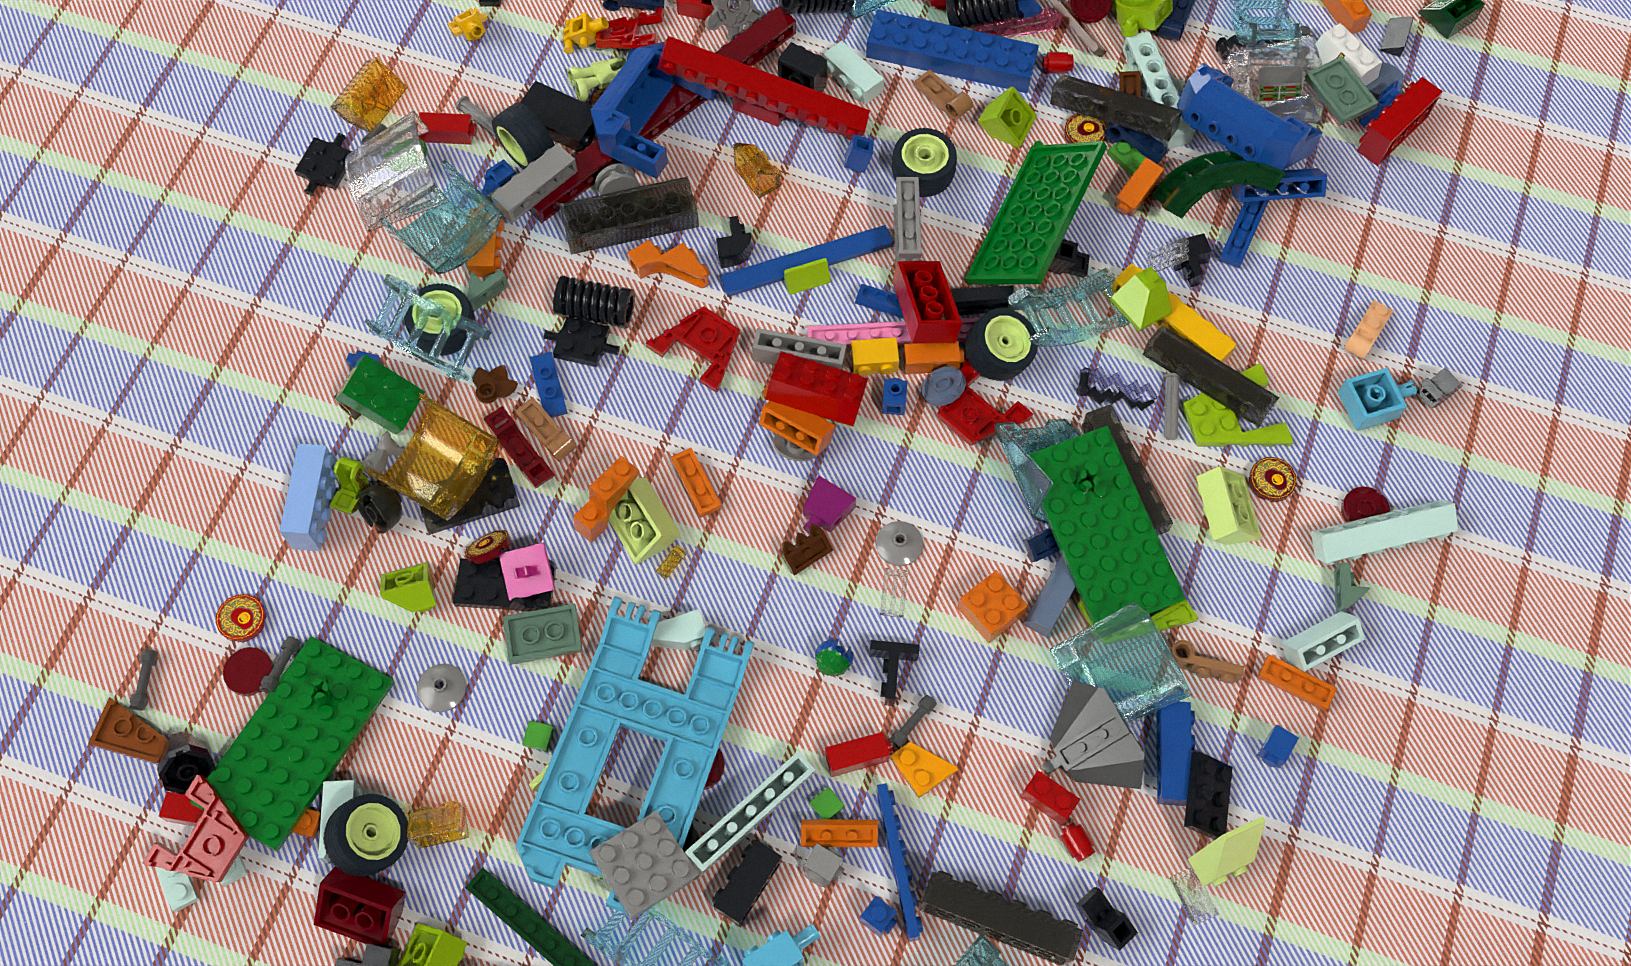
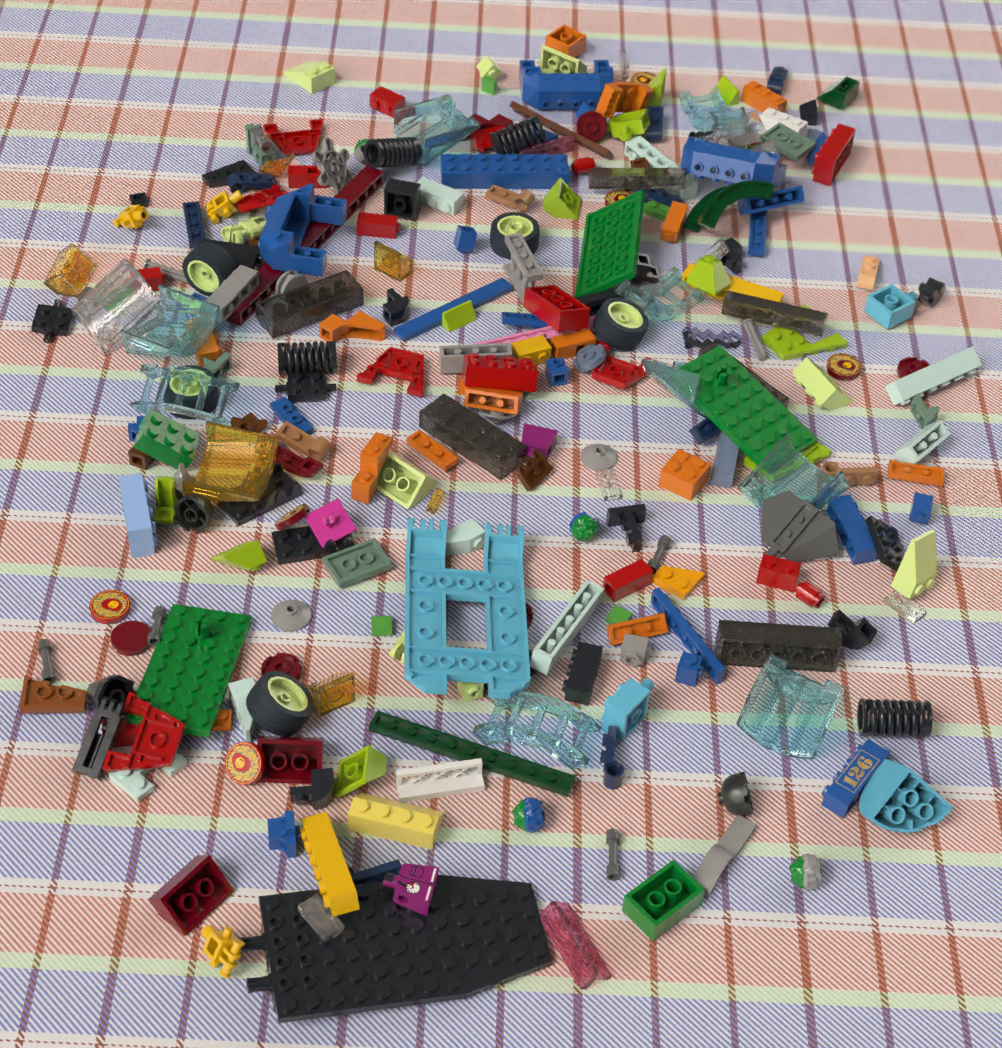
camera: 20 degrees left, 20 degrees down
(149, 827) = (95, 745): none -> black hinge
(302, 903) = (245, 763): none -> tile
(400, 769) = (283, 662): none -> dark red tile
(540, 50) = (193, 223): none -> dark blue plate
(643, 865) = (506, 664): light grey plate -> none
(751, 475) = (472, 436): none -> clear smoke brick
(762, 88) = (381, 205): red brick -> none

